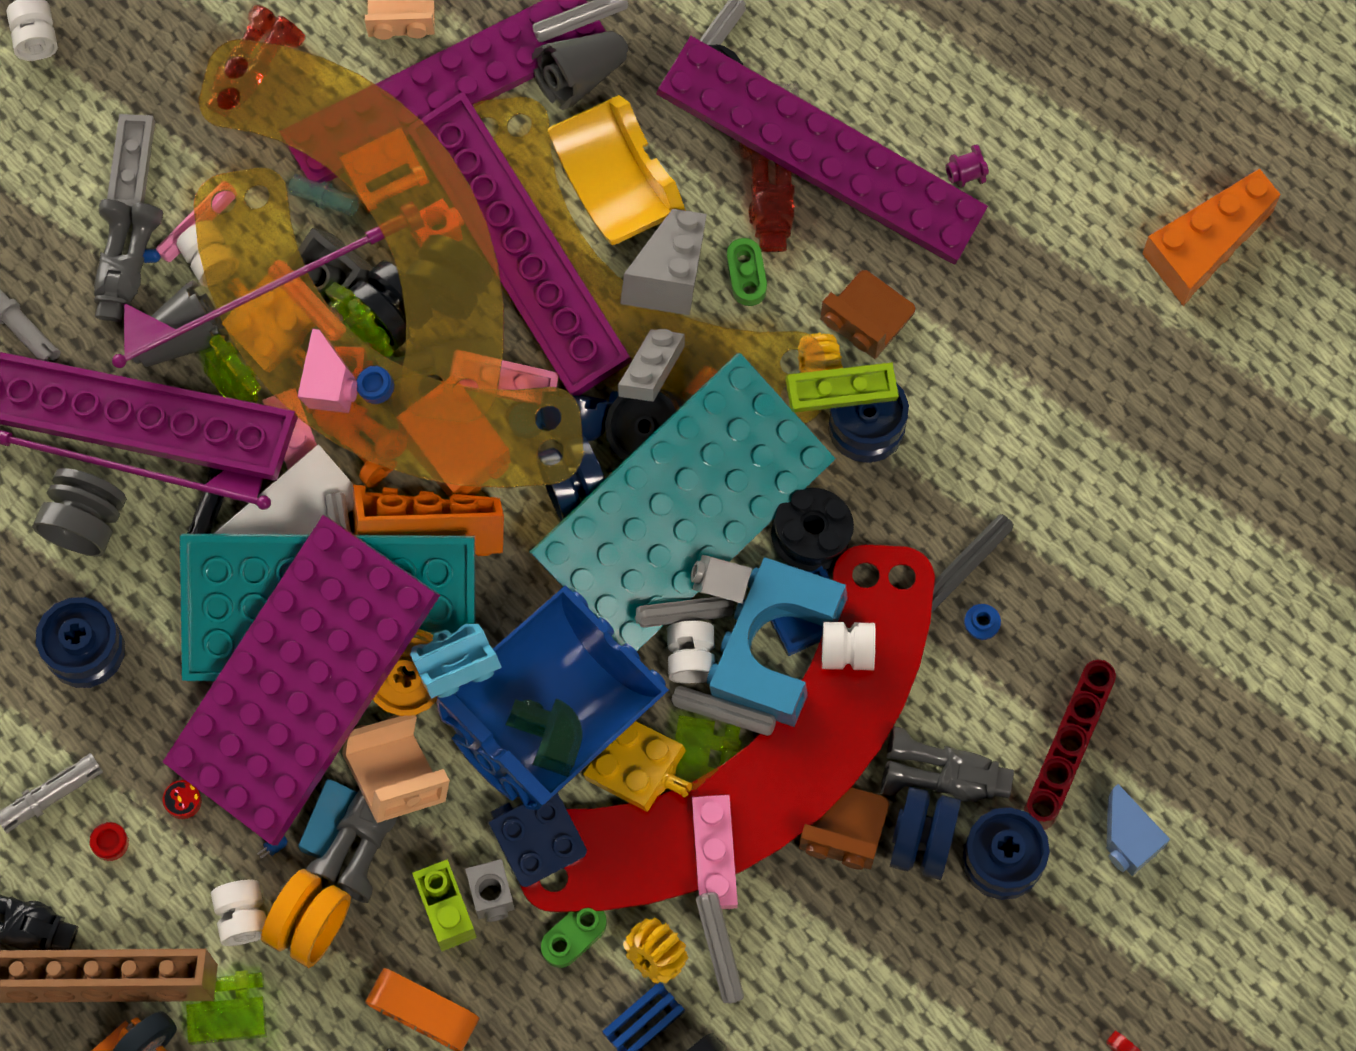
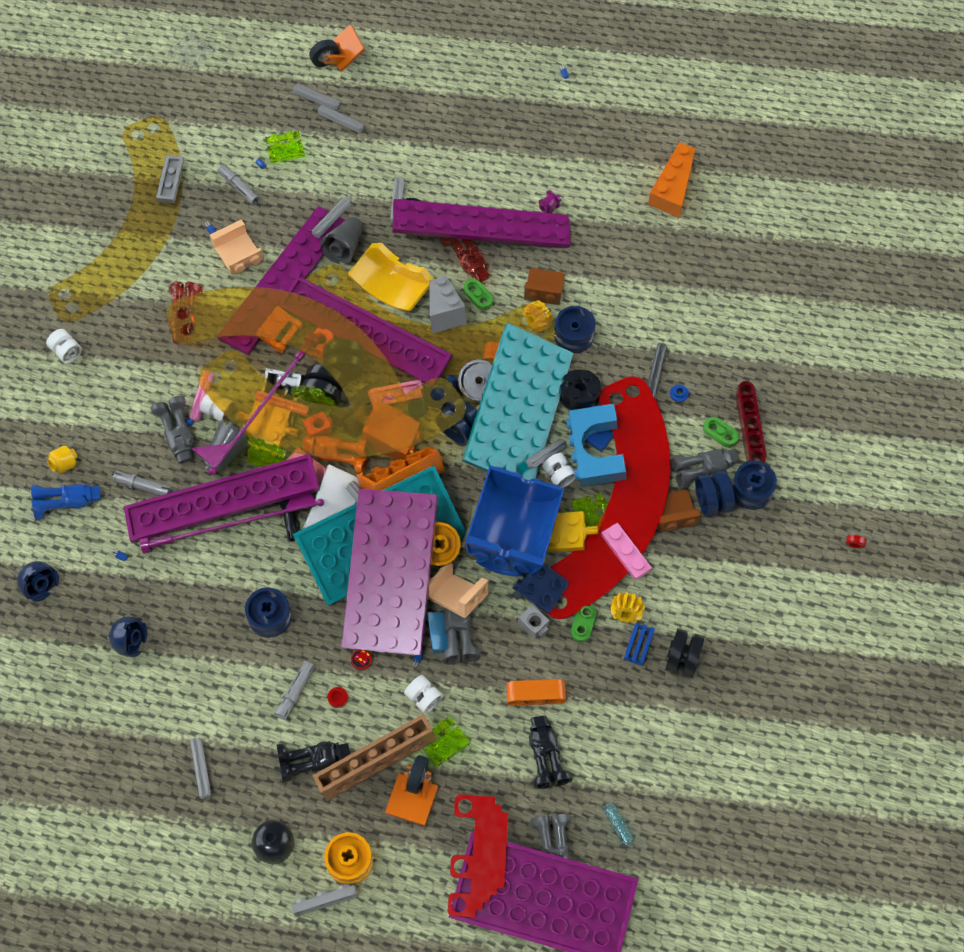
camera: 30 degrees left, 5 degrees down
(79, 512) = (231, 552): dark grey wheel -> none
(131, 159) = (151, 382): light grey plate -> none
(305, 918) = (458, 678): light orange wheel -> none
(324, 195) = (259, 354): clear light blue pin -> none
(326, 378) = (319, 428): bright pink slope -> none
(375, 385) = (343, 421): blue tile -> none
(444, 905) = (518, 640): lime slope -> none
(454, 660) = (463, 520): medium azure plate -> none
(558, 730) = (529, 528): clear green brick -> none
(651, 365) = (466, 350): light grey plate -> none
(720, 578) = (555, 429): light grey brick -> none
(720, 947) = (655, 591): light grey axle -> none
(724, 710) = (590, 488): light grey axle -> none
(841, 387) = (559, 318): lime plate -> none
(848, 645) = (632, 429): white wheel -> none
(1014, 728) = (722, 430): none -> bright green plate
(1131, 833) = (800, 448): medium blue slope -> none

